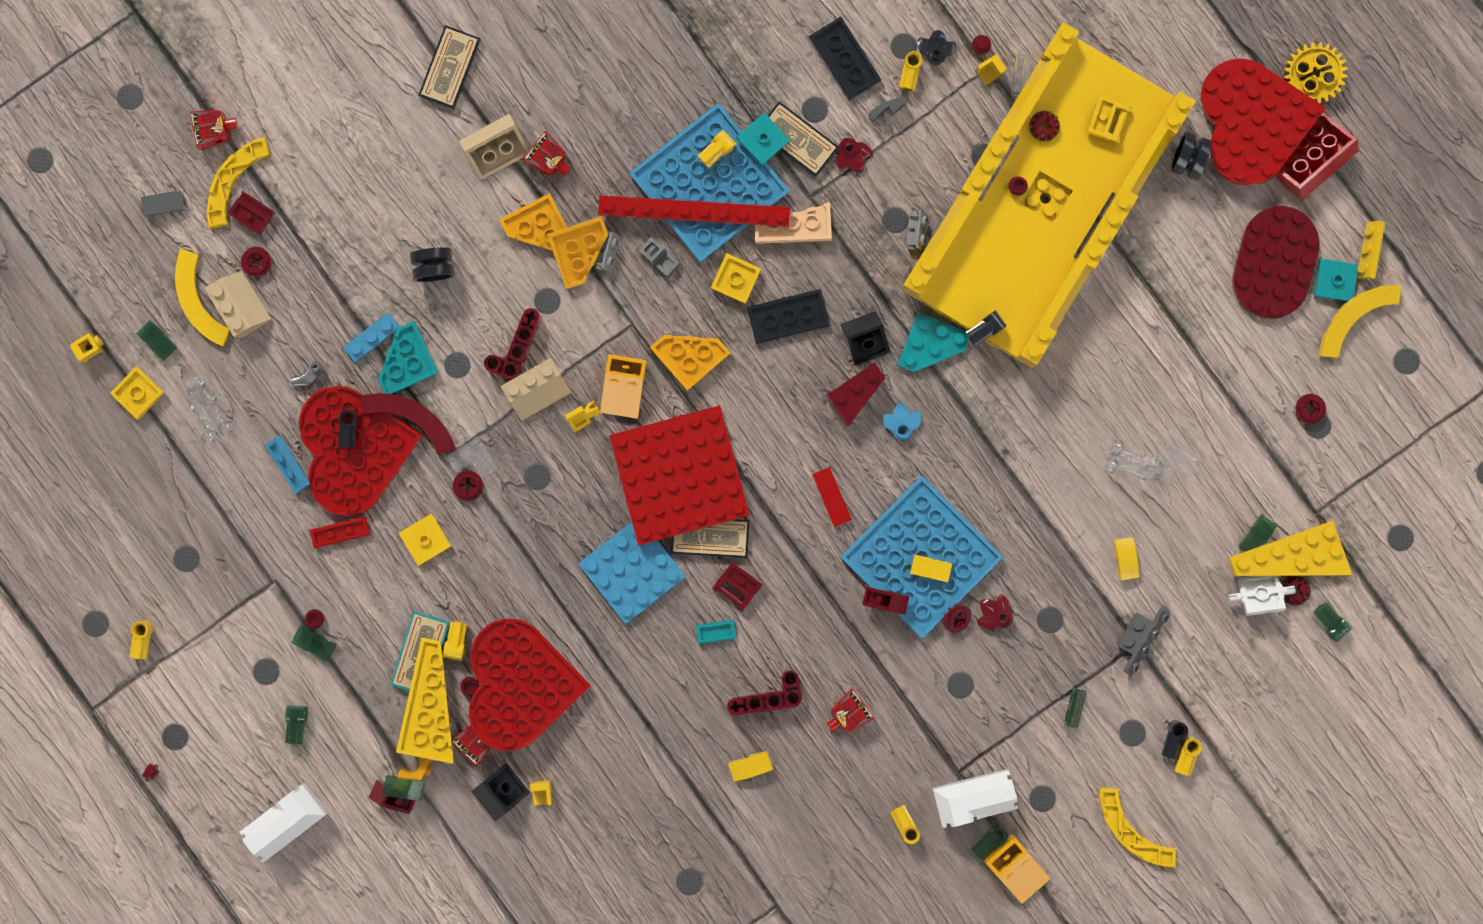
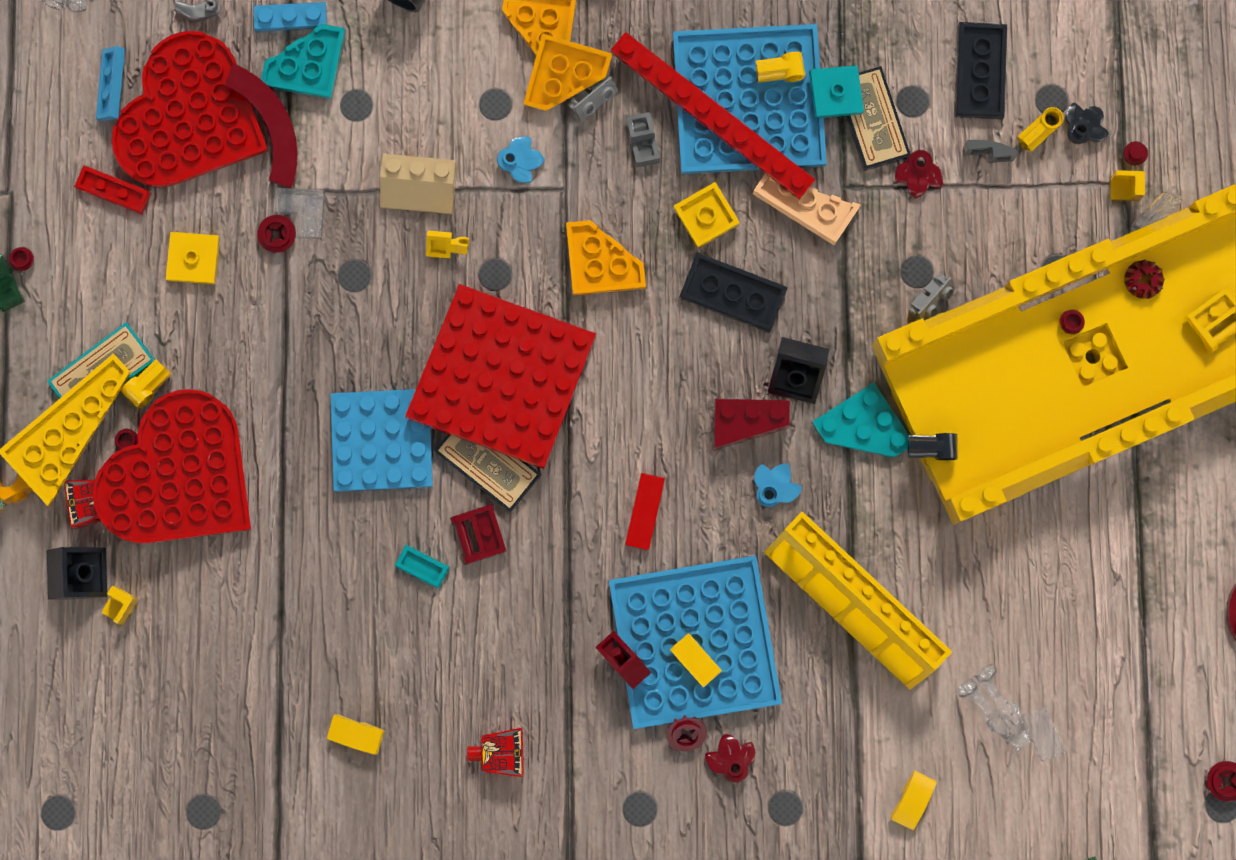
camera: 35 degrees right, 5 degrees down
(348, 432) = (194, 91): black piece -> none
(516, 343) = (432, 124): dark red beam -> none
(592, 324) = (523, 159): none -> dark azure plate
(623, 386) = (510, 242): light orange slope -> none
(763, 698) = (421, 672): dark red beam -> none
(1005, 460) = (857, 601): none -> yellow window

